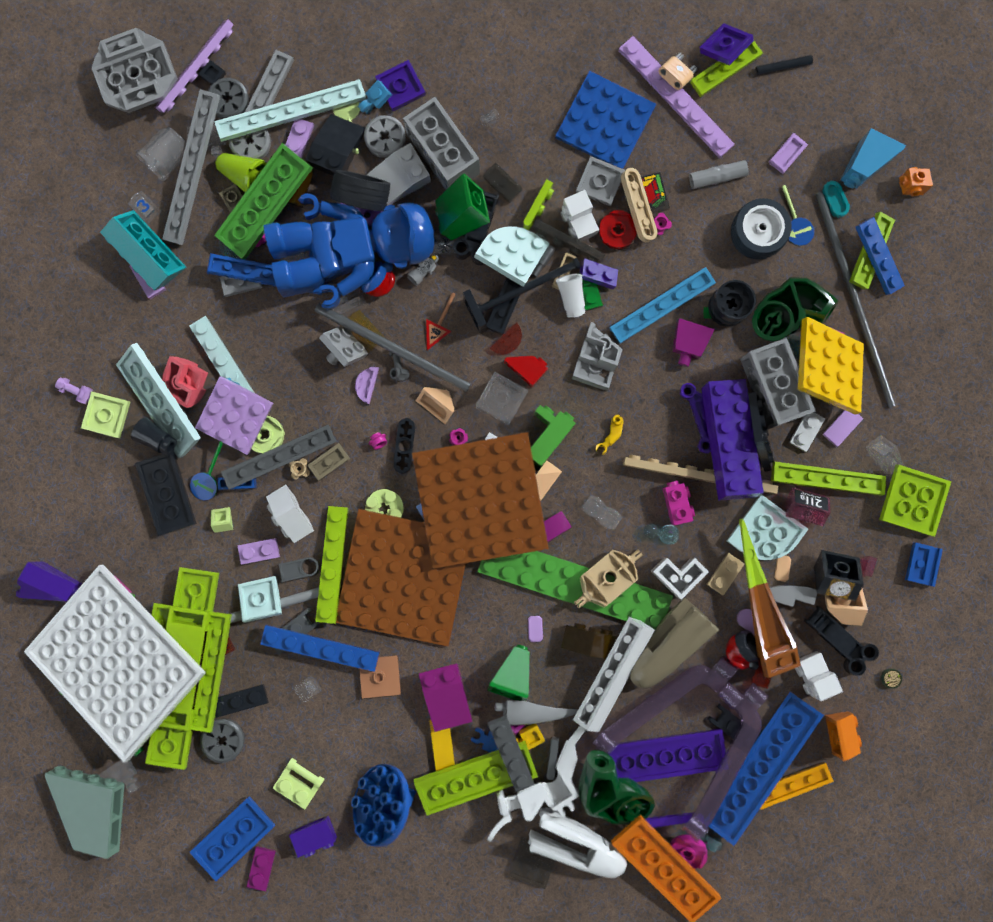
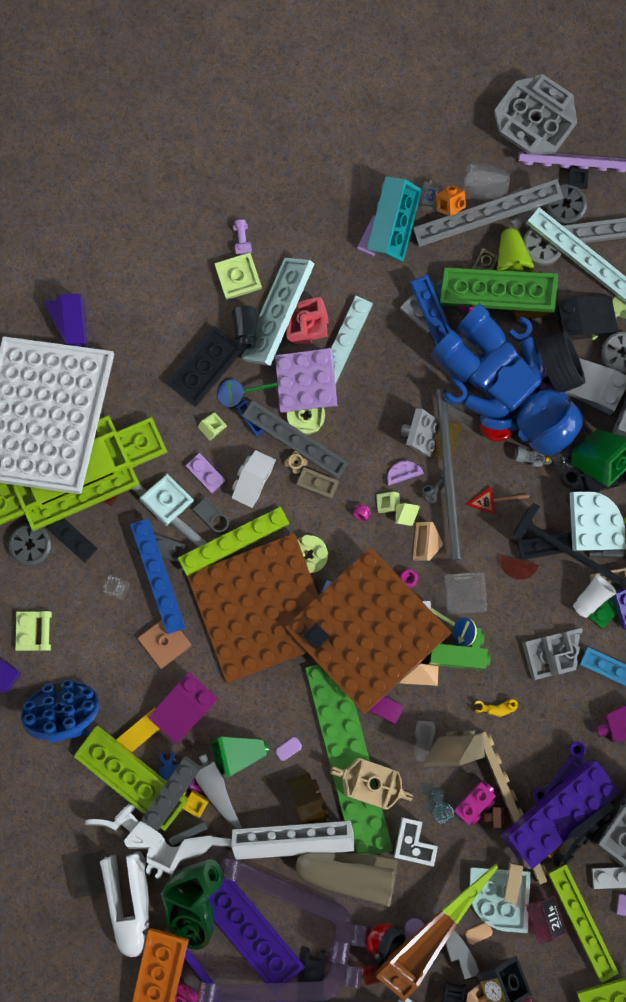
camera: 55 degrees right, 5 degrees down
(159, 191) = (450, 200): none -> orange brick
(299, 136) = (573, 283): lavender plate -> none
(383, 413) = (387, 502): none -> yellowish green slope
(398, 440) = (382, 526): black beam -> none
(403, 404) = (406, 513): none -> yellowish green slope
(458, 547) = (316, 636): none -> black plate
(527, 368) = (506, 599): red slope -> none
(532, 420) = (463, 631): none -> blue piece
(626, 491) = (456, 749): none -> dark tan slope
(699, 493) = (496, 817): none -> nougat tile
(725, 574) = (440, 884): tan plate -> none
(762, 515) = (513, 883): none -> tan piece

